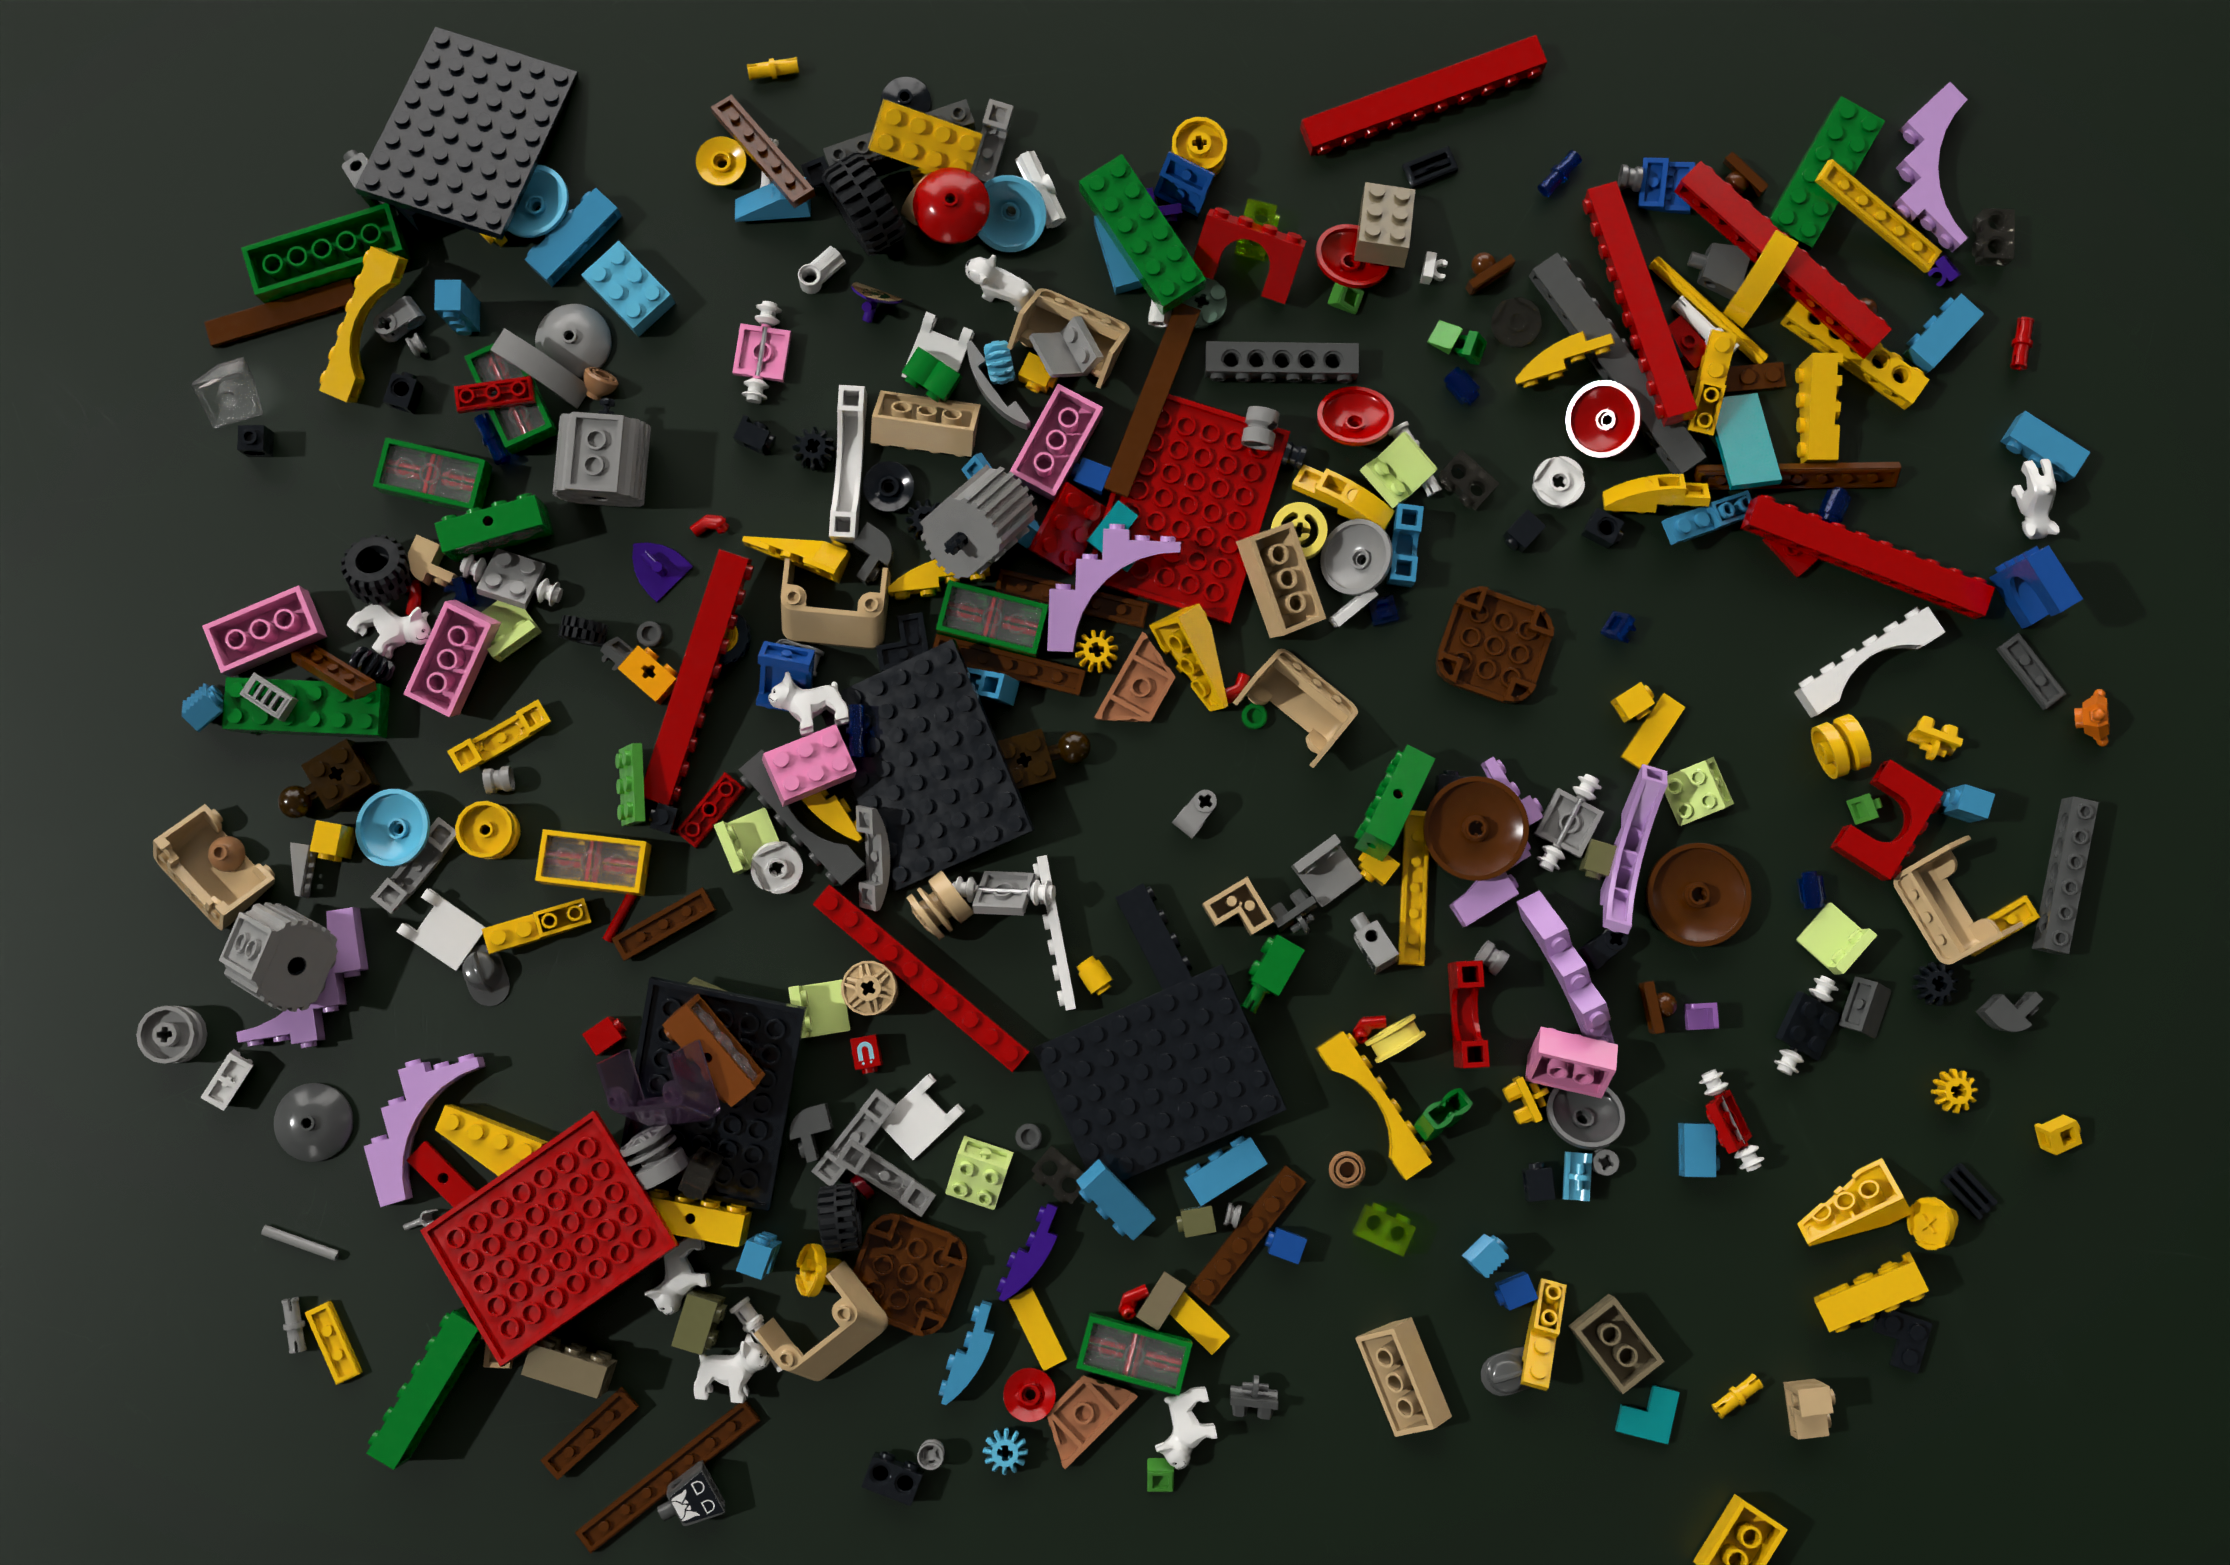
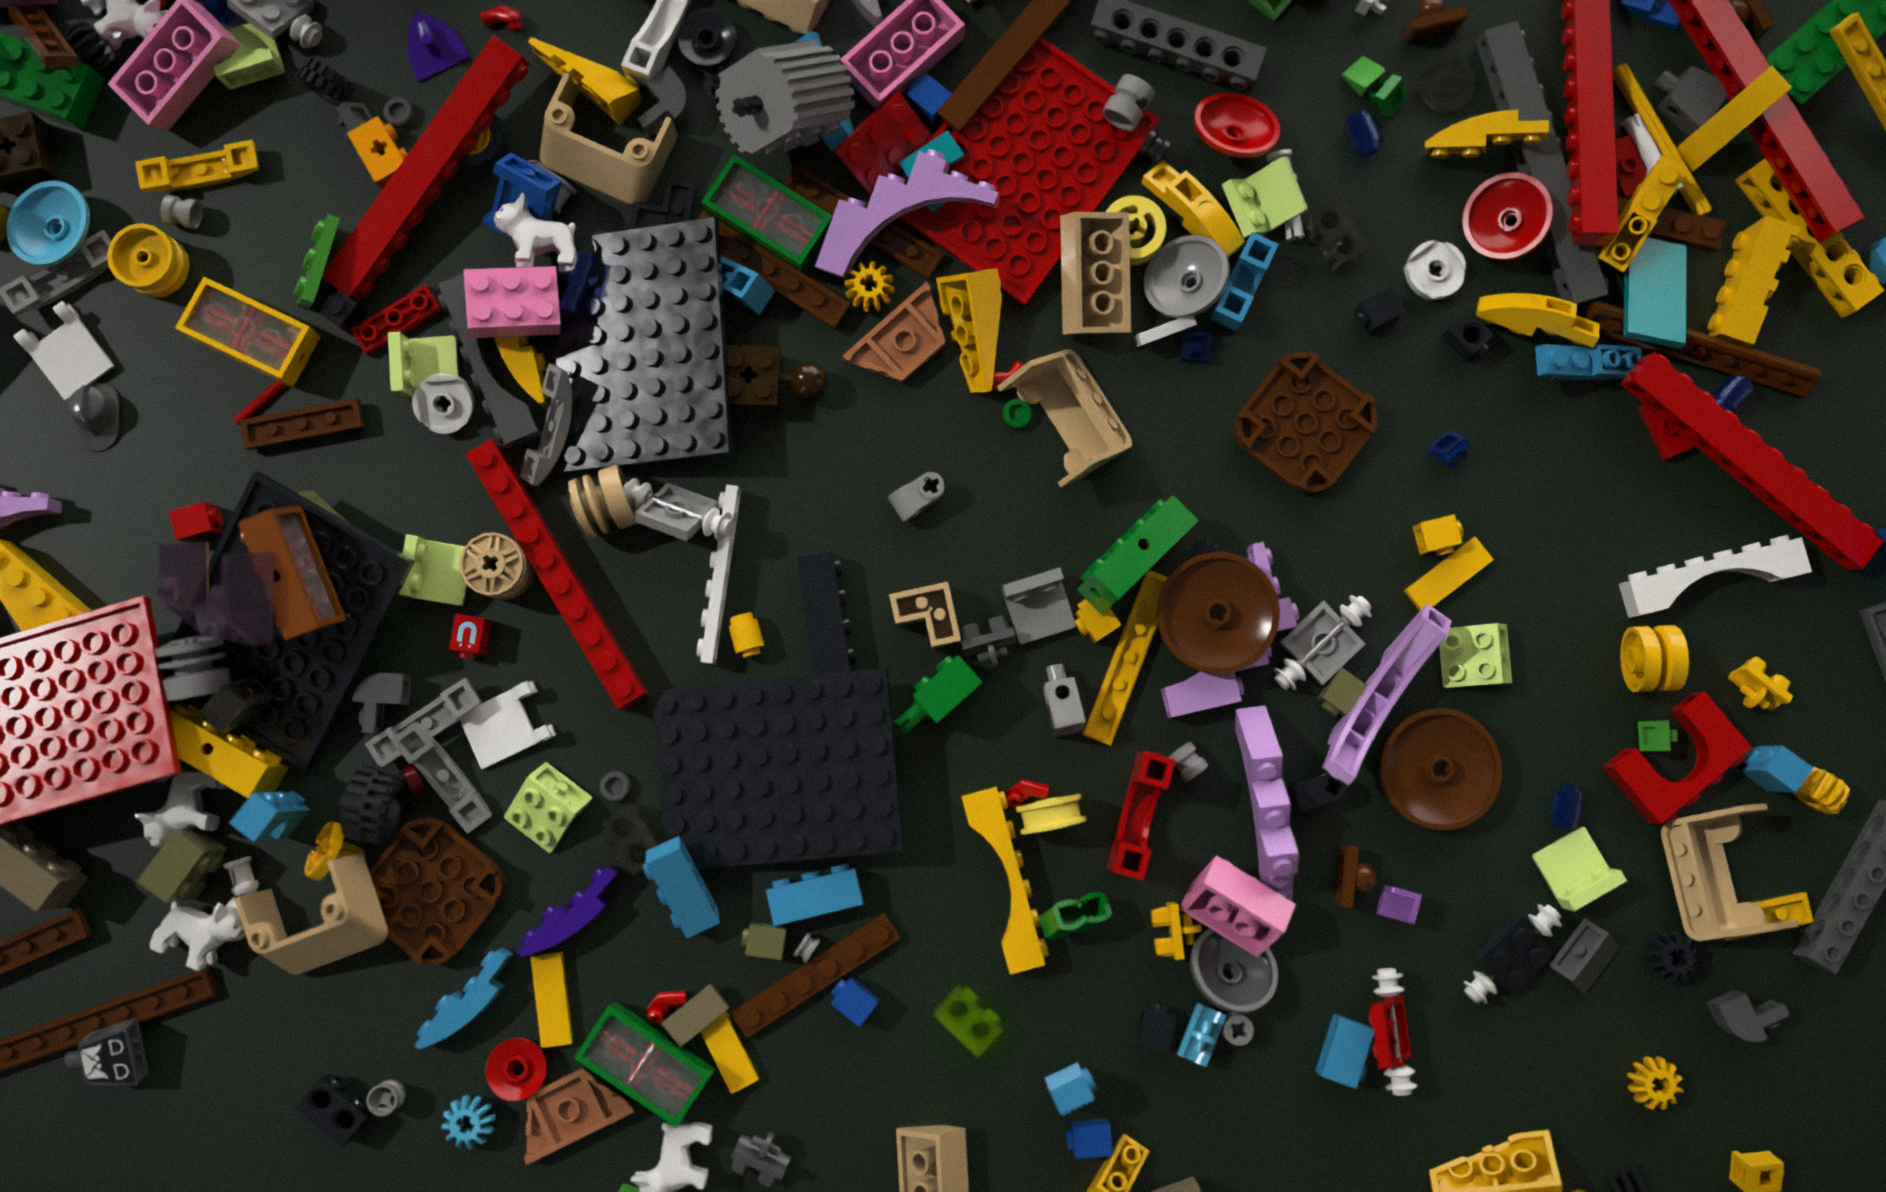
camera: 20 degrees right, 0 degrees up
(536, 926) = (164, 380): yellow slope -> none
(926, 581) = (713, 150): yellow slope -> none
(1347, 1169) = (948, 940): medium nougat brick -> none
(2011, 808) = (1823, 792): none -> yellow gear

